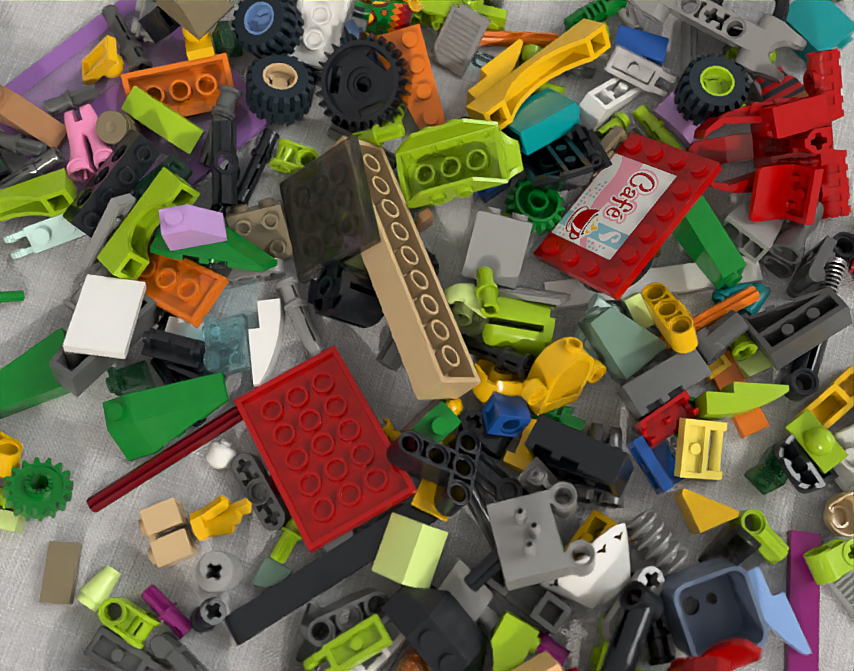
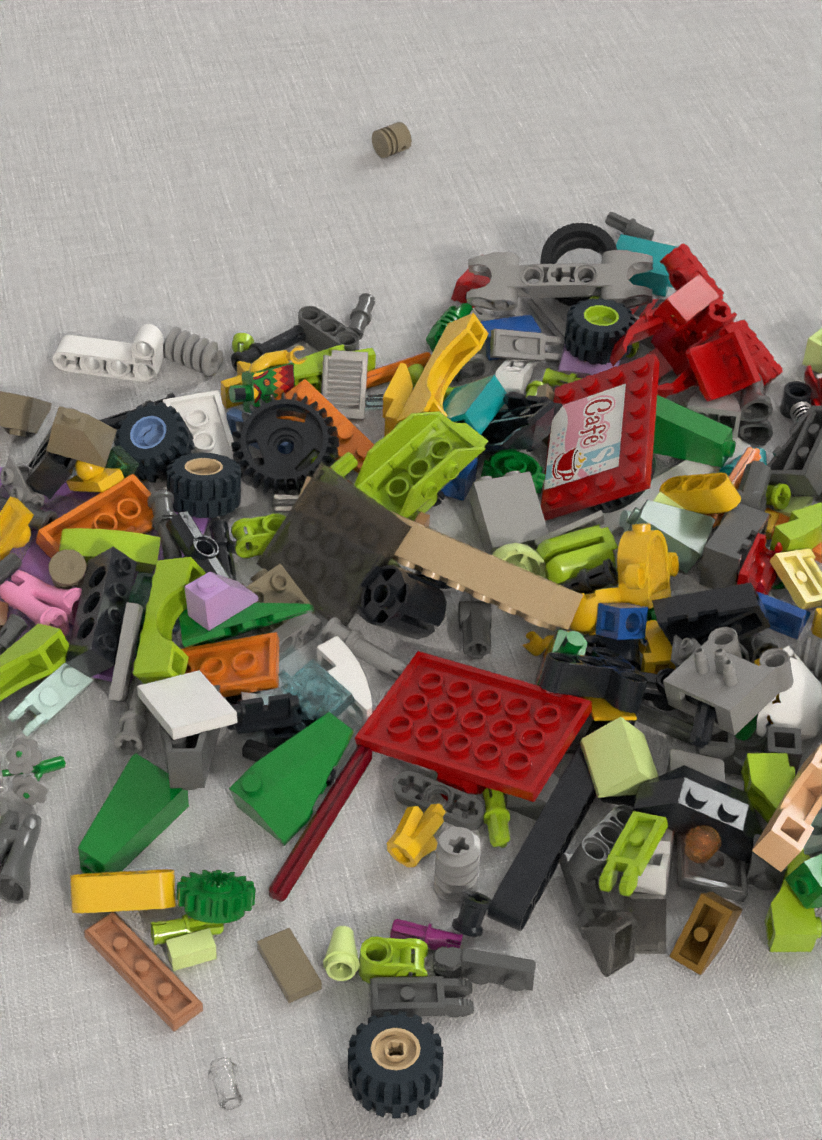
camera: 30 degrees left, 30 degrees down
(129, 379) = (225, 775): clear green bracket -> none
(160, 520) = (385, 881): tan piece -> none
(221, 454) = (373, 794): white piece -> none
(271, 573) = (500, 860): sand green tile -> none
(487, 292) = (530, 536): lime pin -> none
(811, 267) = (785, 412): dark grey plate -> none

